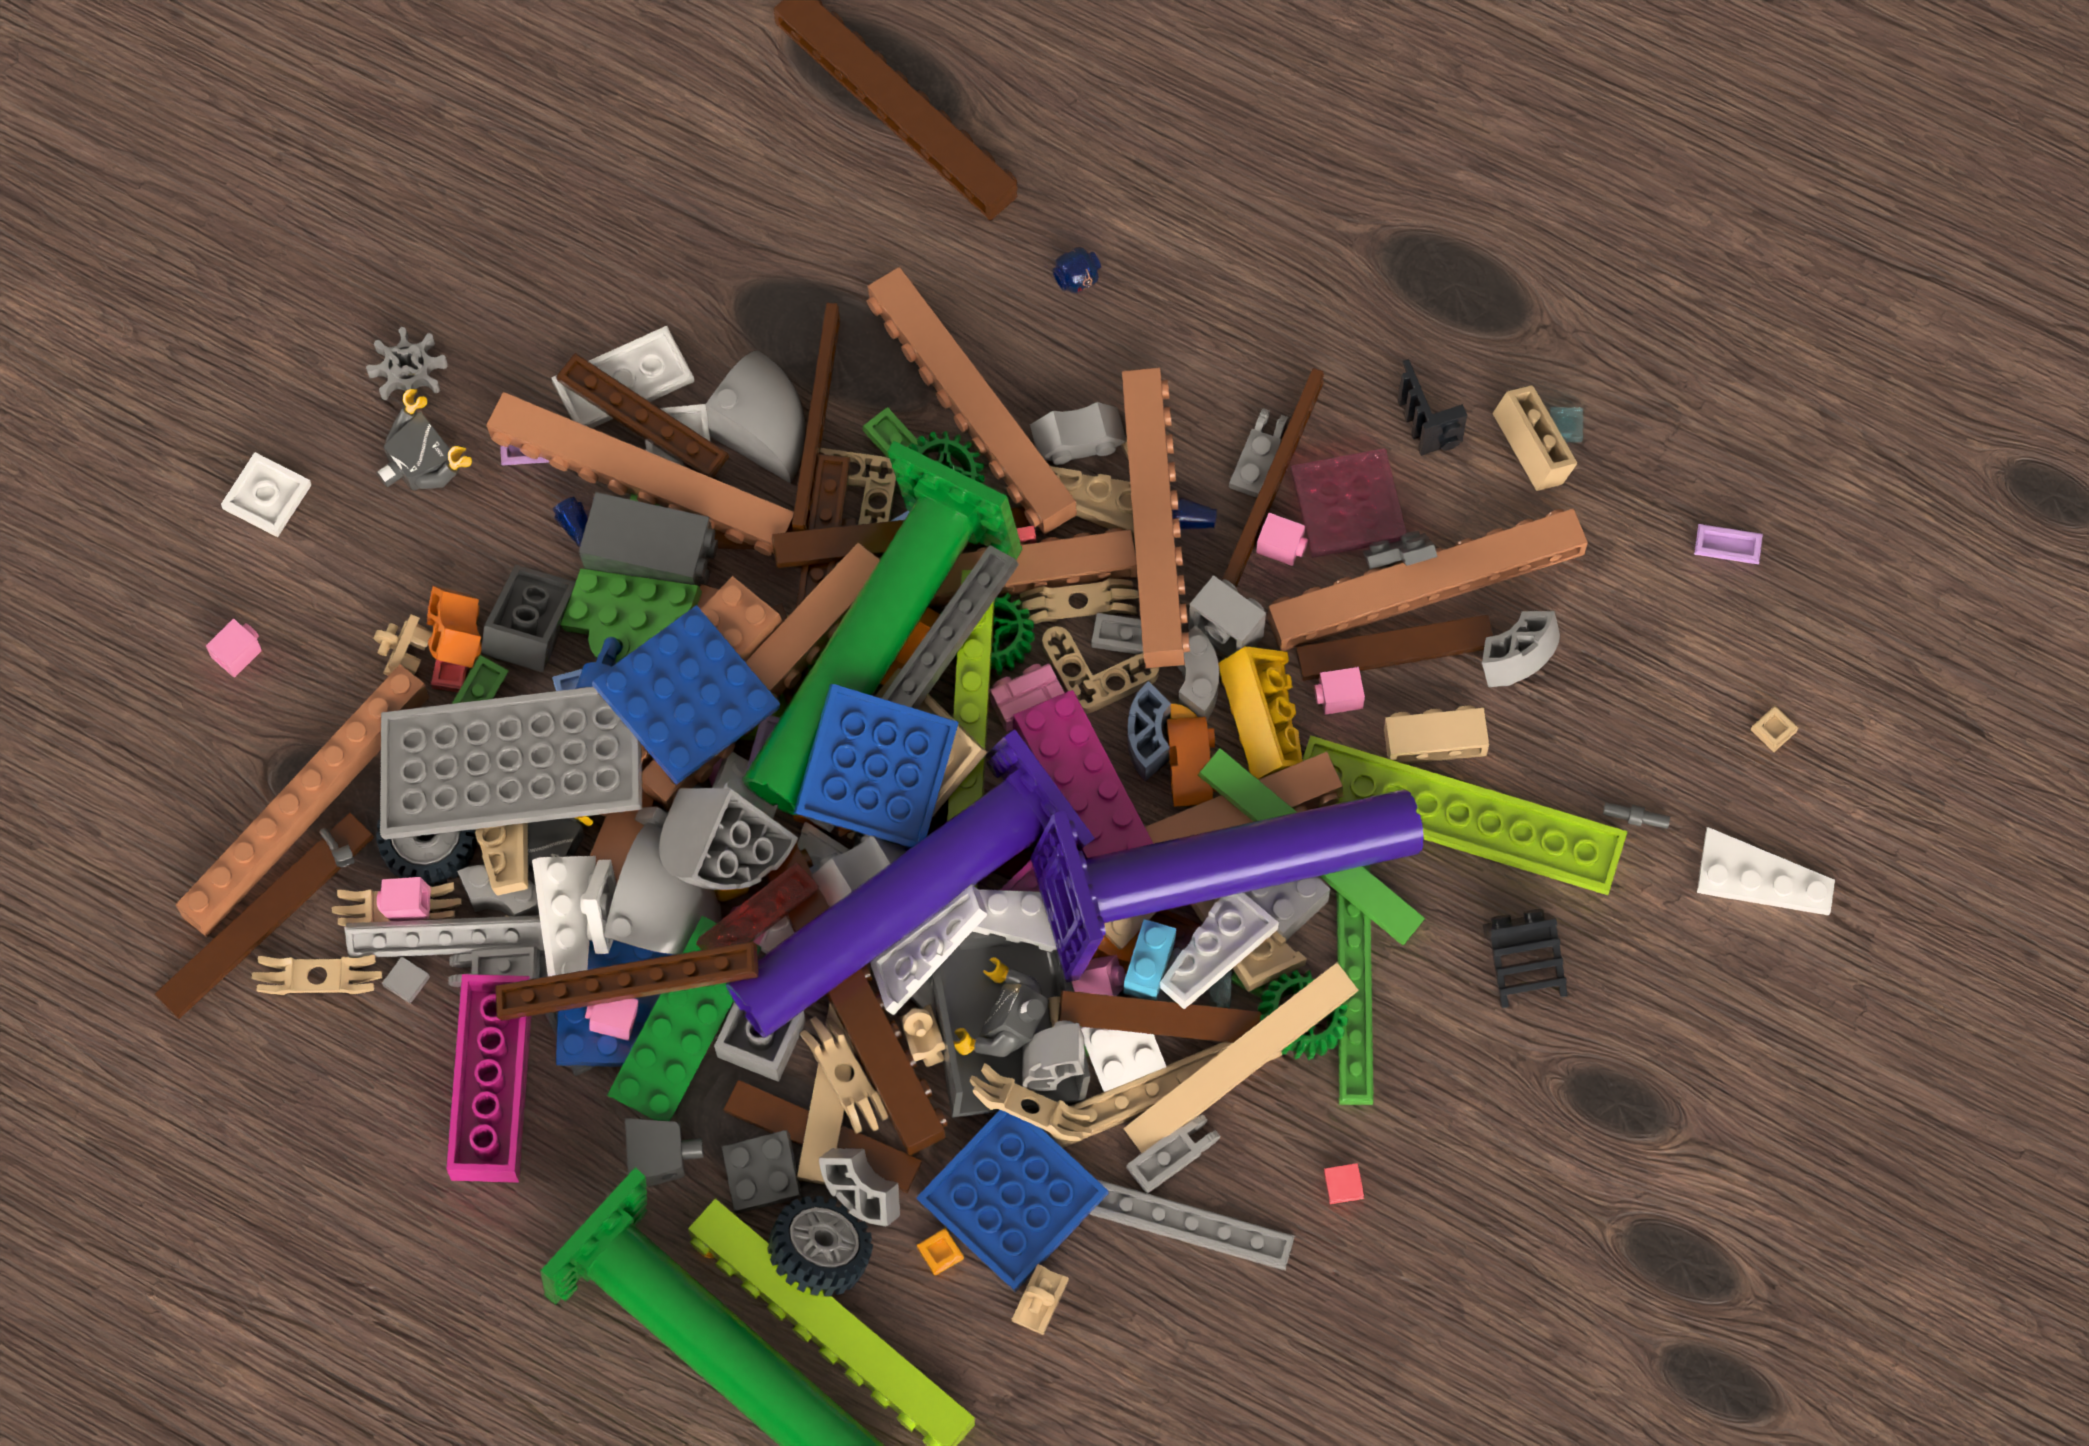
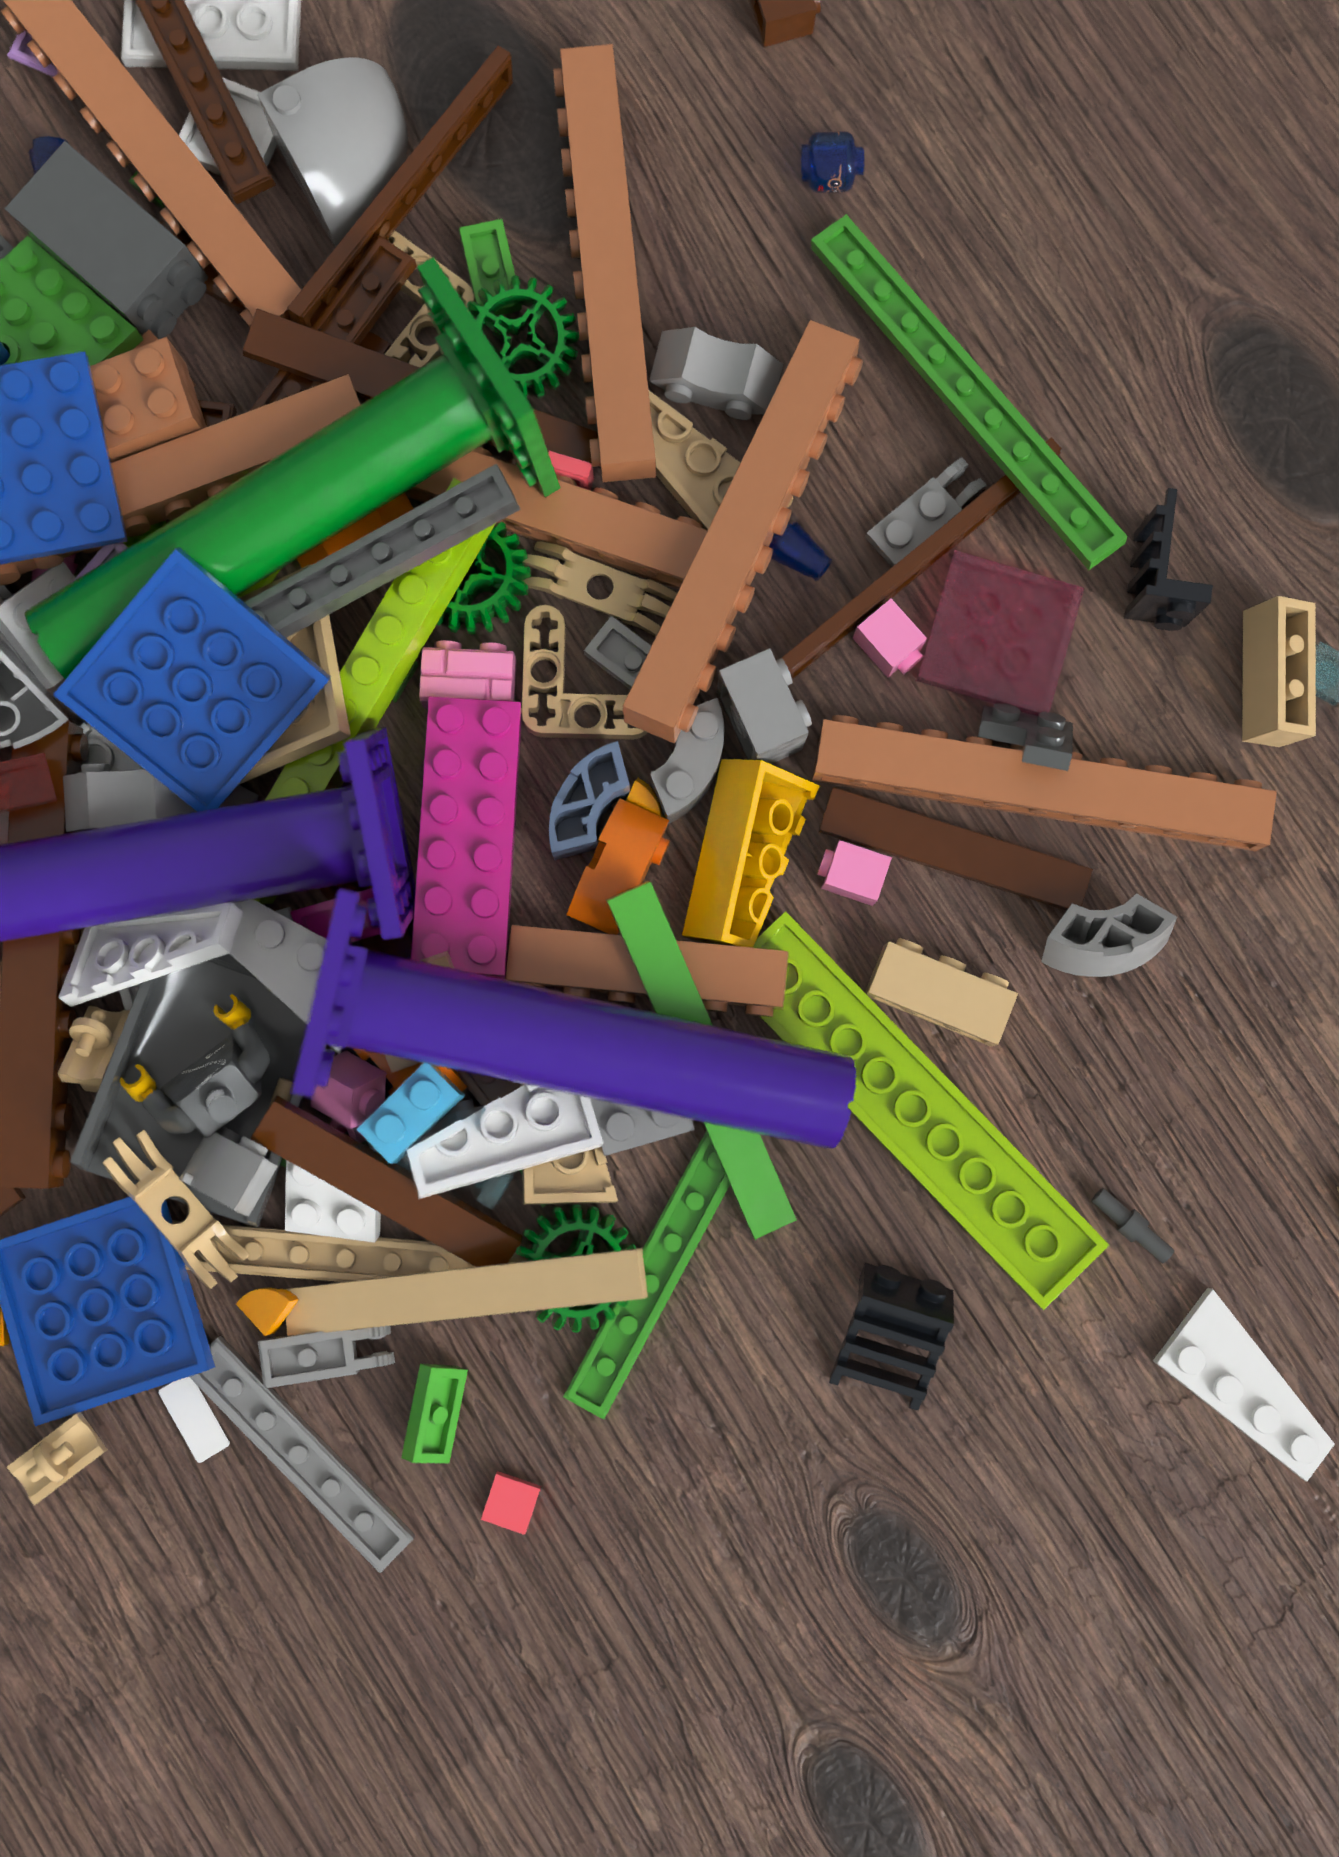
camera: 25 degrees right, 15 degrees up
(1110, 1241) = (194, 1418): none -> white sticker
(1120, 1142) = (267, 1308): none -> light orange tile
(1244, 365) = (969, 393): none -> bright green plate
(1264, 1151) = (434, 1413): none -> bright green plate

